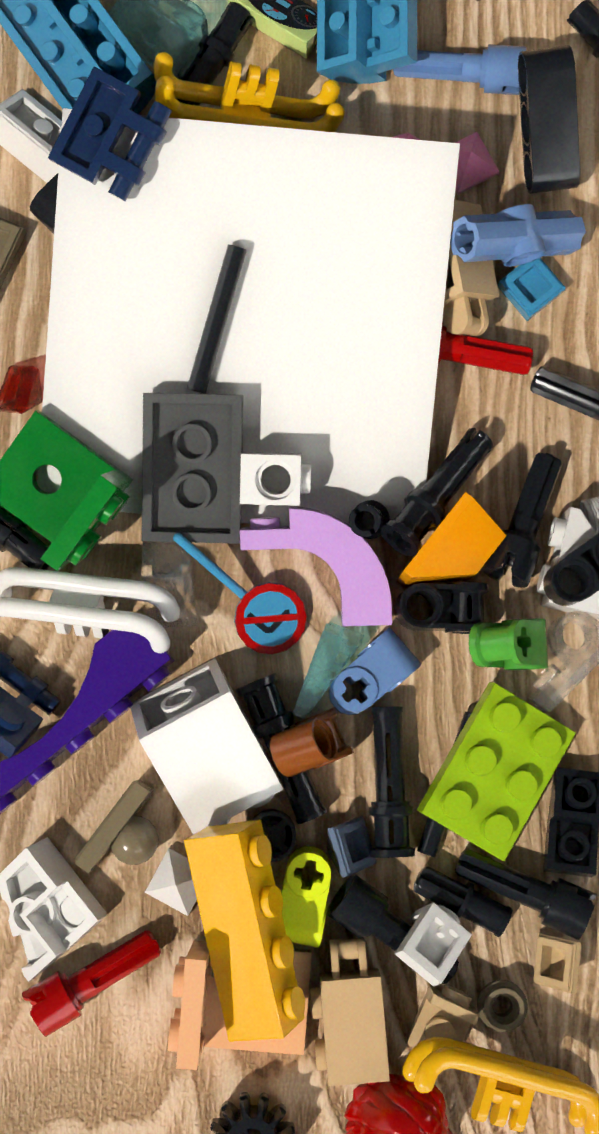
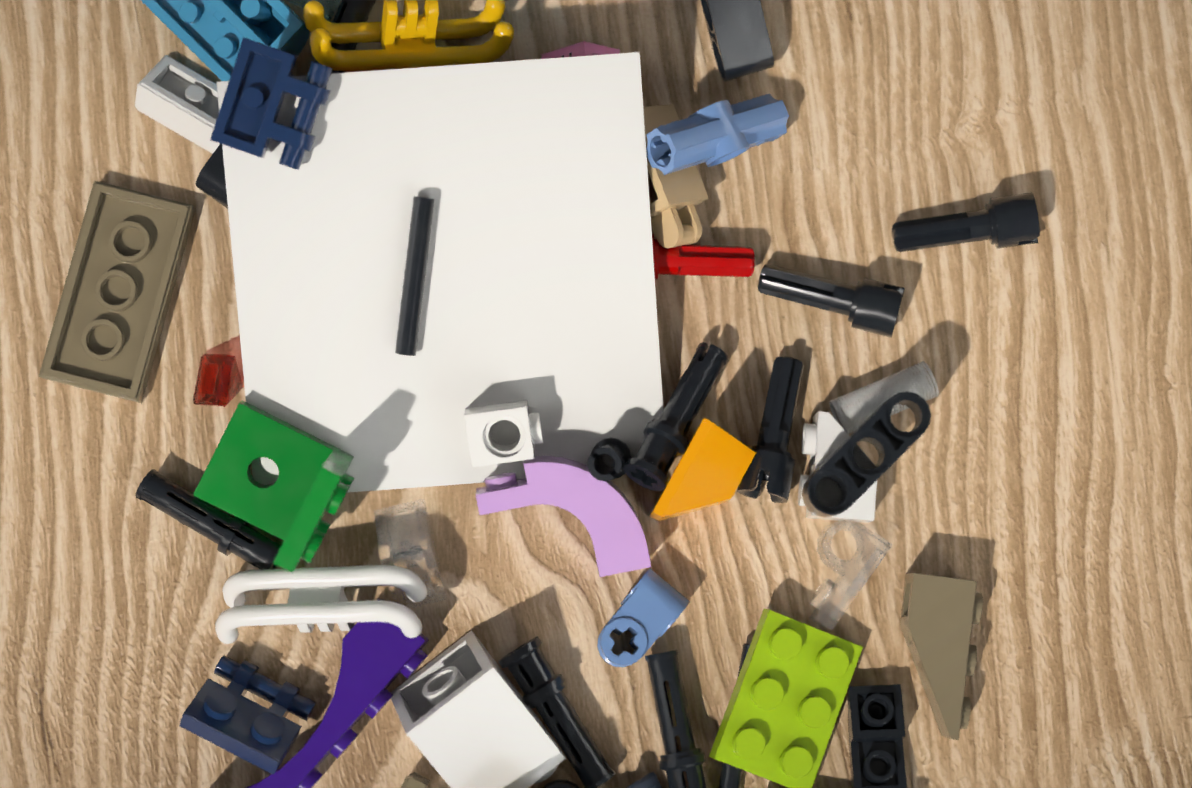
camera: 10 degrees left, 0 degrees up
(192, 467) = (414, 435): dark grey plate -> none
(267, 616) = (518, 578): piece -> none
(309, 744) = (585, 706): dark orange piece -> none
(330, 657) = (593, 607): clear light blue slope -> none
(452, 606) = (707, 537): black piece -> none
(474, 163) = (657, 57): bright pink slope -> none
(510, 644) = (778, 566): bright green piece -> none
(531, 287) = (742, 181): dark azure tile -> none

